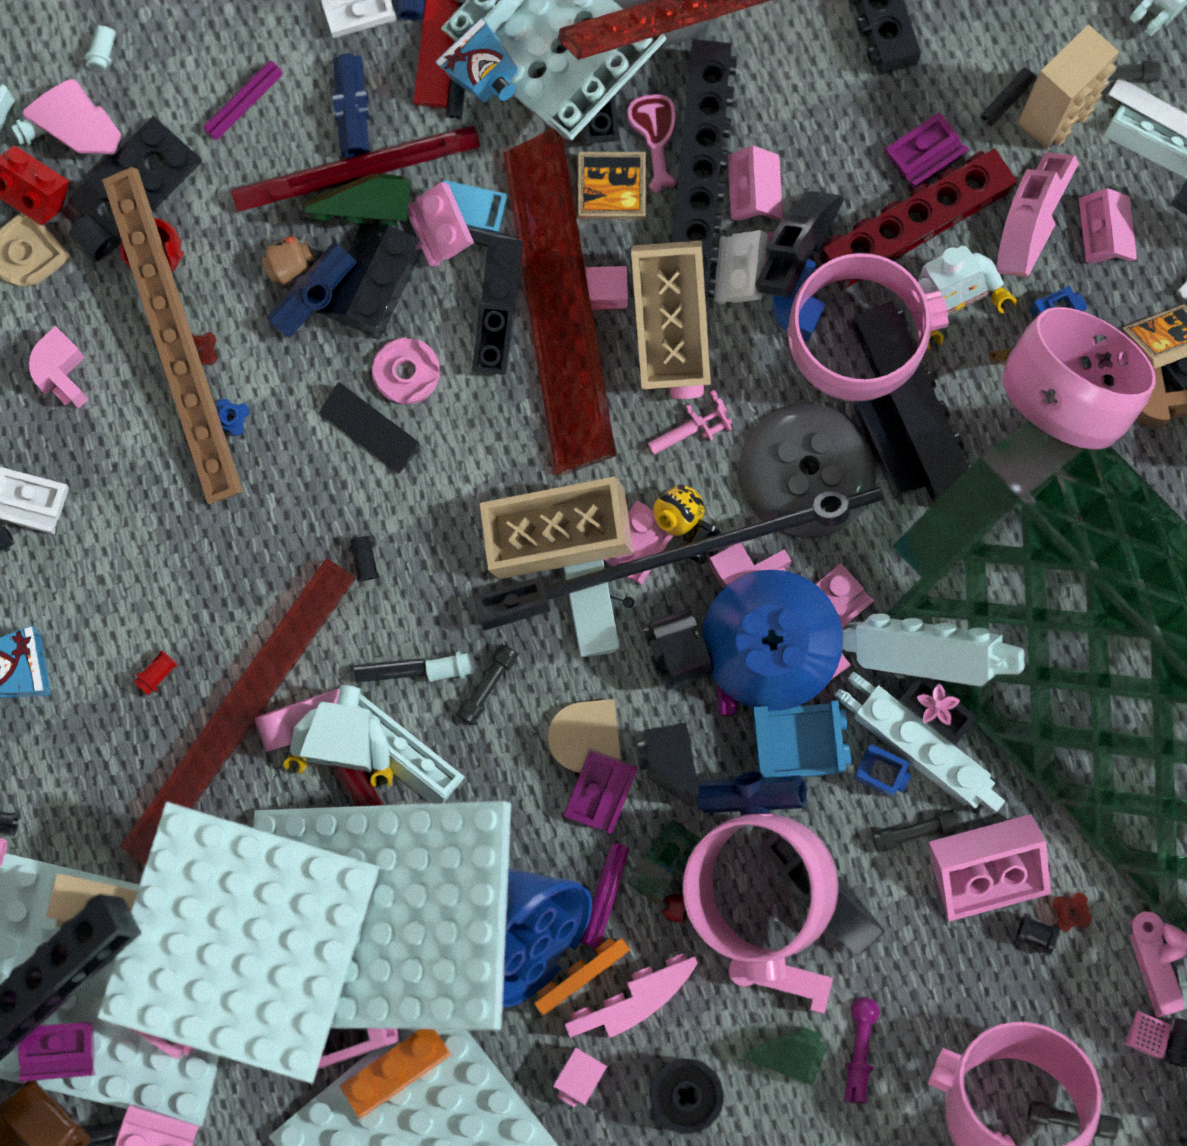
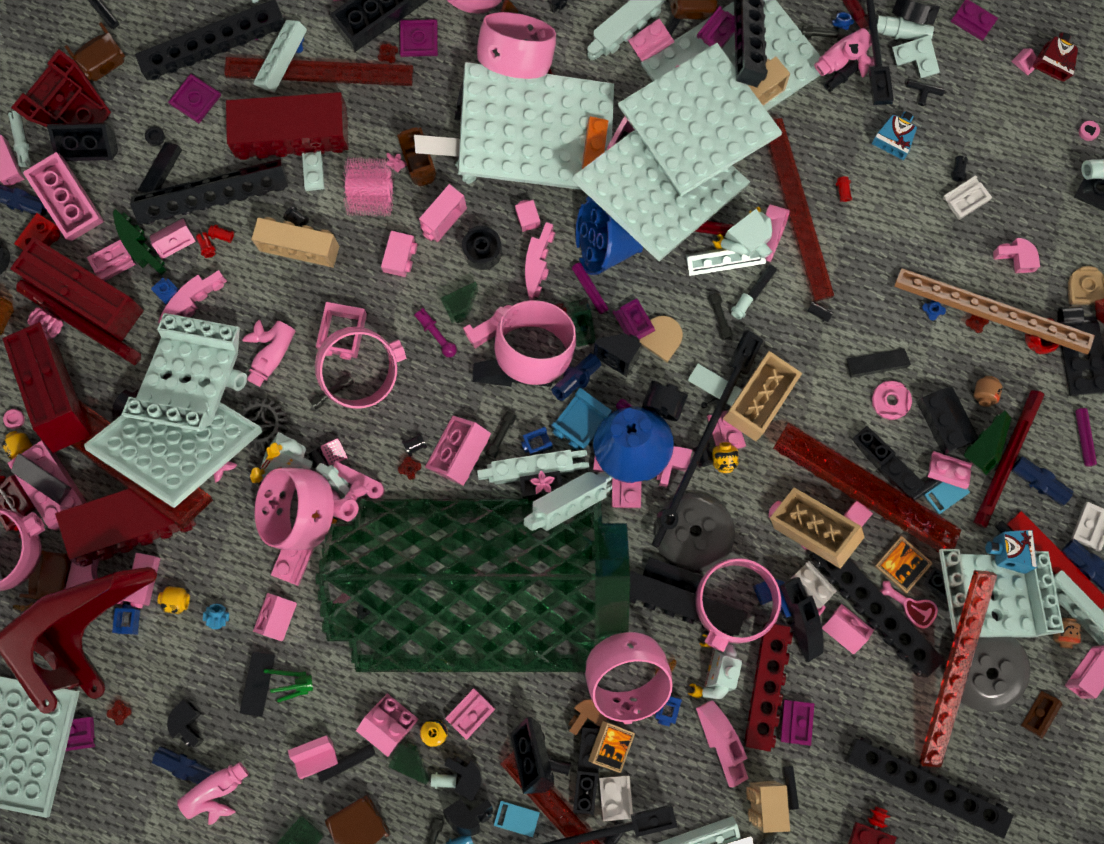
camera: 135 degrees right, 0 degrees up
(324, 273) = (966, 399): dark blue piece -> none
(580, 974) = (566, 250): orange plate -> none
(692, 426) = (758, 499): bright pink piece -> none
(1107, 226) = (687, 773): bright pink panel -> none

